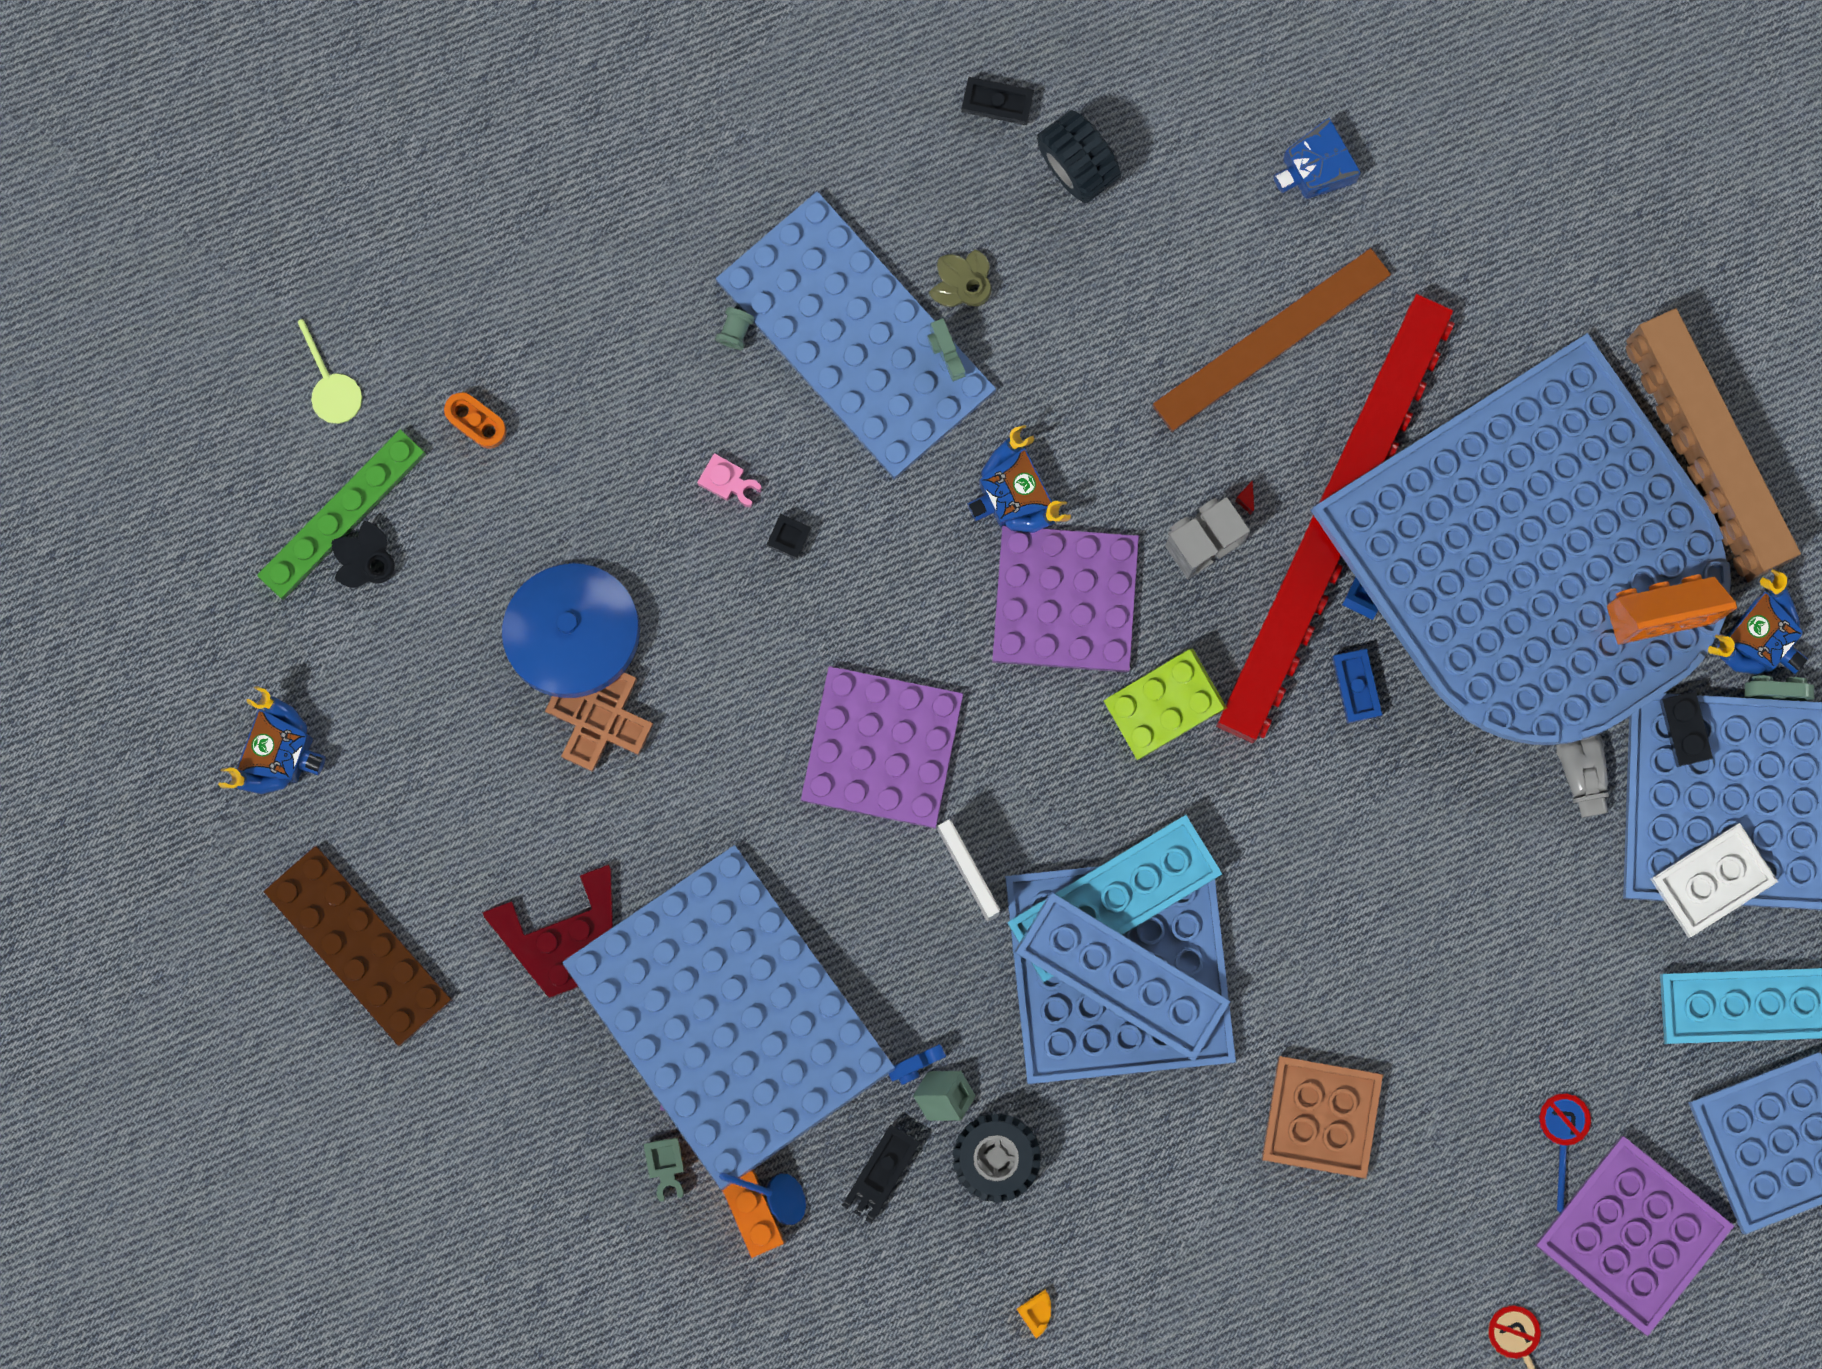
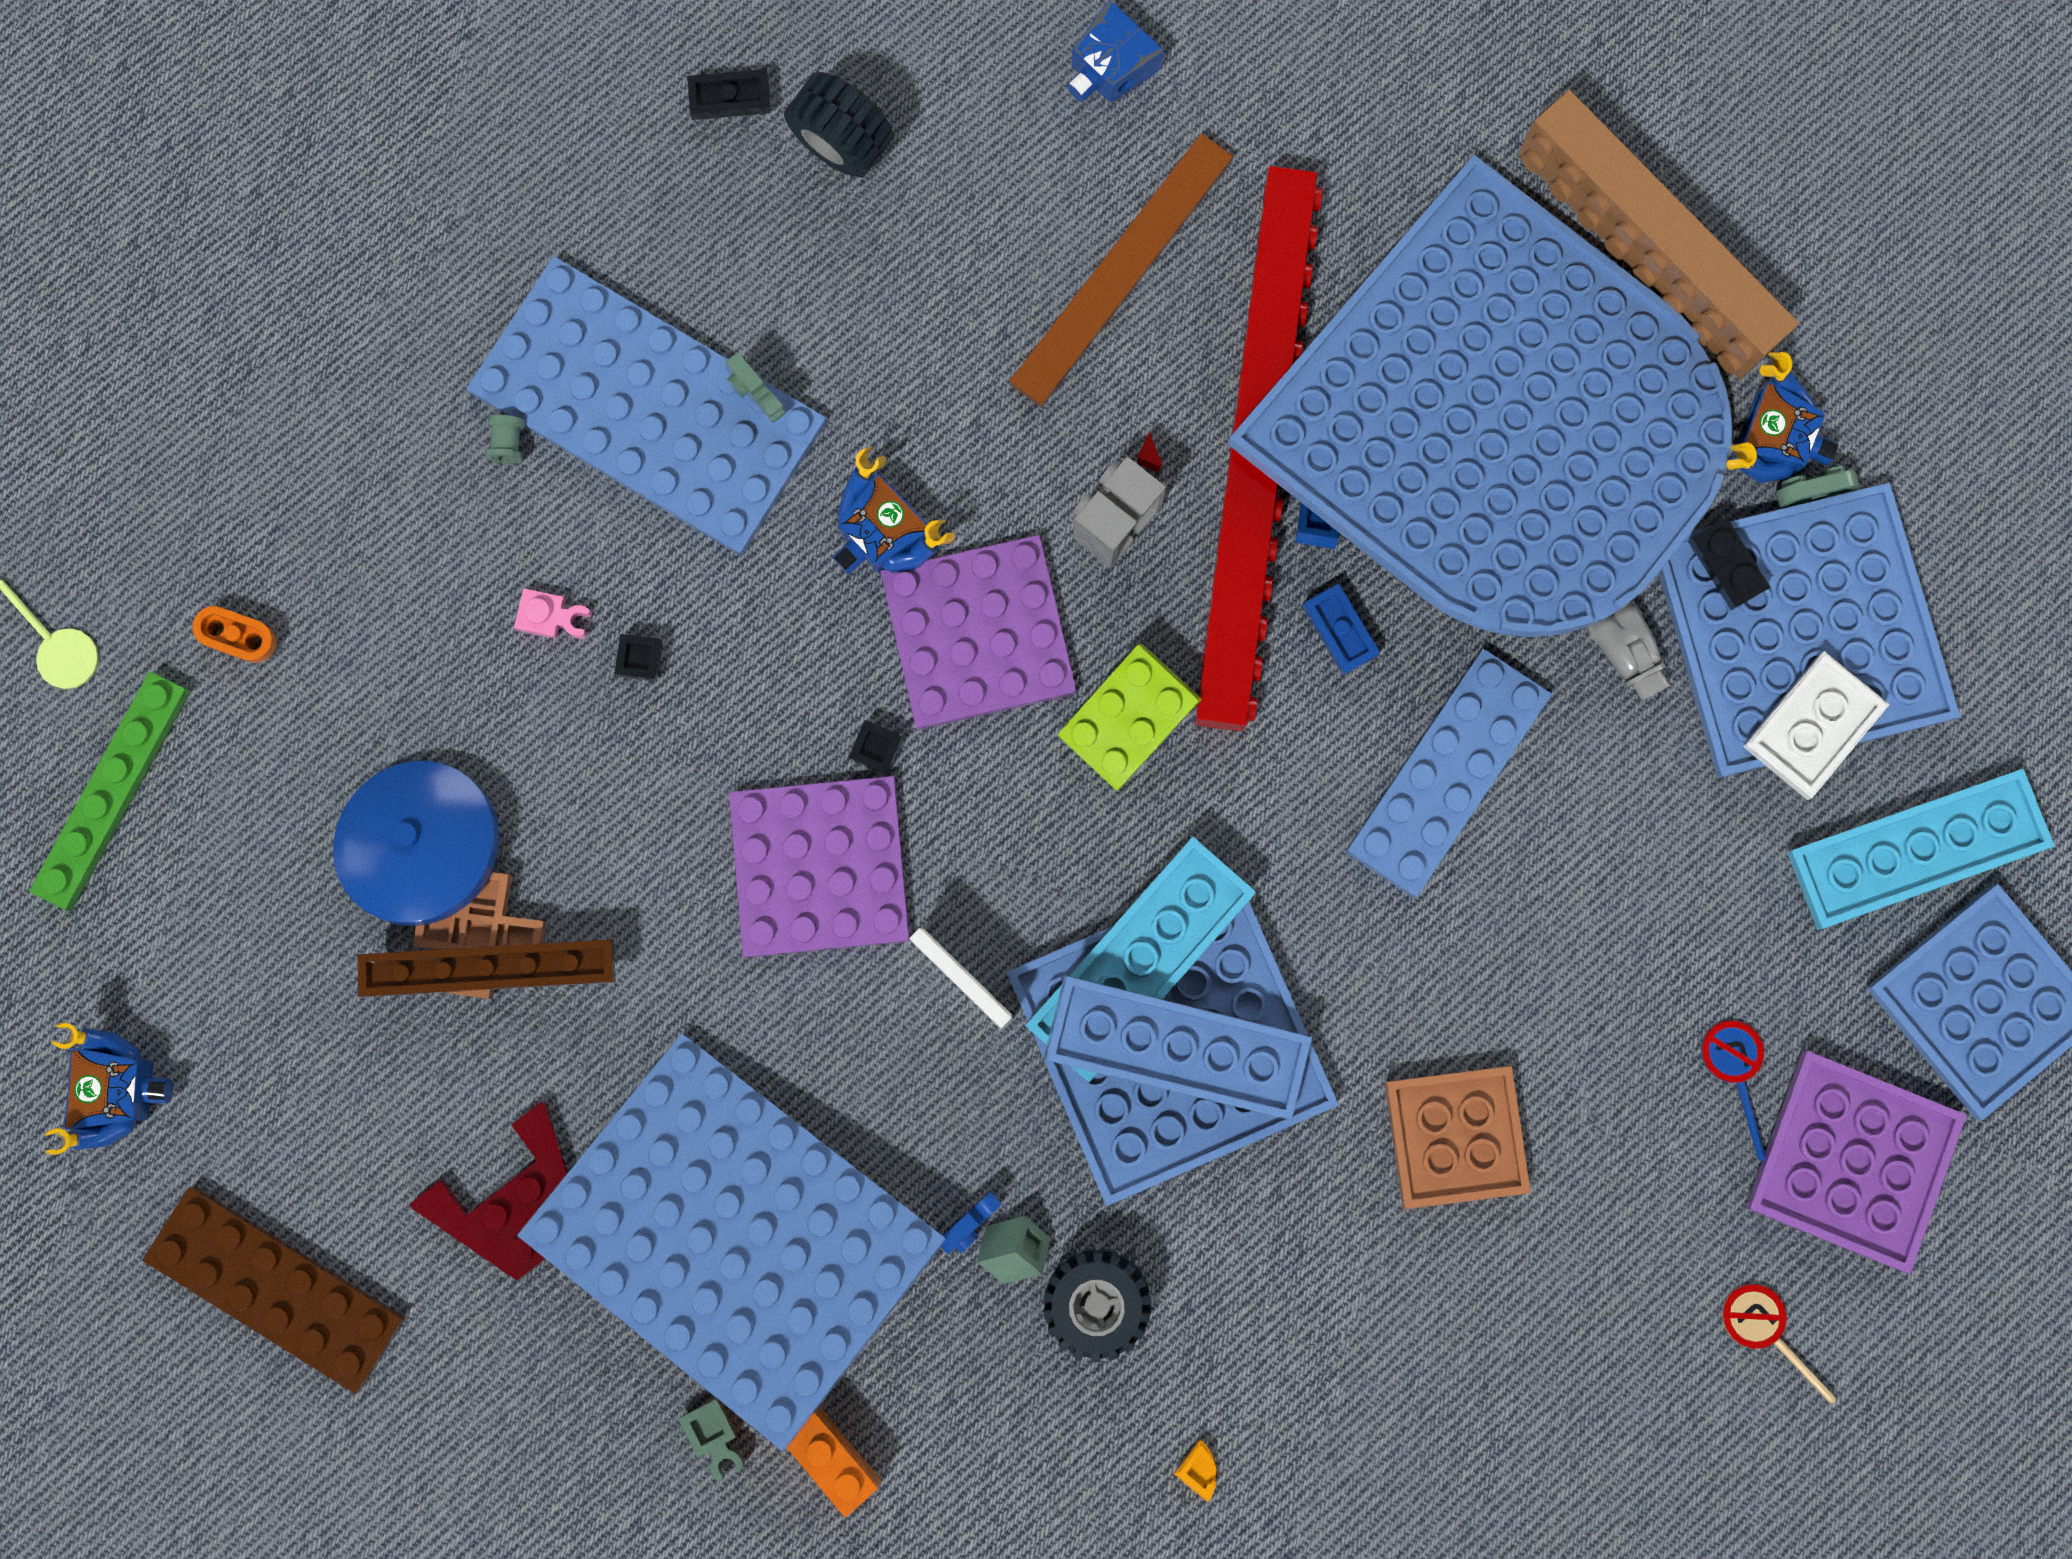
camera: 20 degrees left, 0 degrees up
(359, 553) = (143, 832): black plate -> none
(599, 746) = (486, 968): none -> reddish brown plate
(783, 1196) = (861, 1428): blue piece -> none
(882, 1172) = (968, 1362): black hinge -> none
(955, 666) = (875, 747): none -> black plate
(959, 276) = (746, 304): olive plate -> none
(1407, 827) = (1448, 773): none -> medium blue plate
(1669, 608) = (1670, 430): orange slope -> none

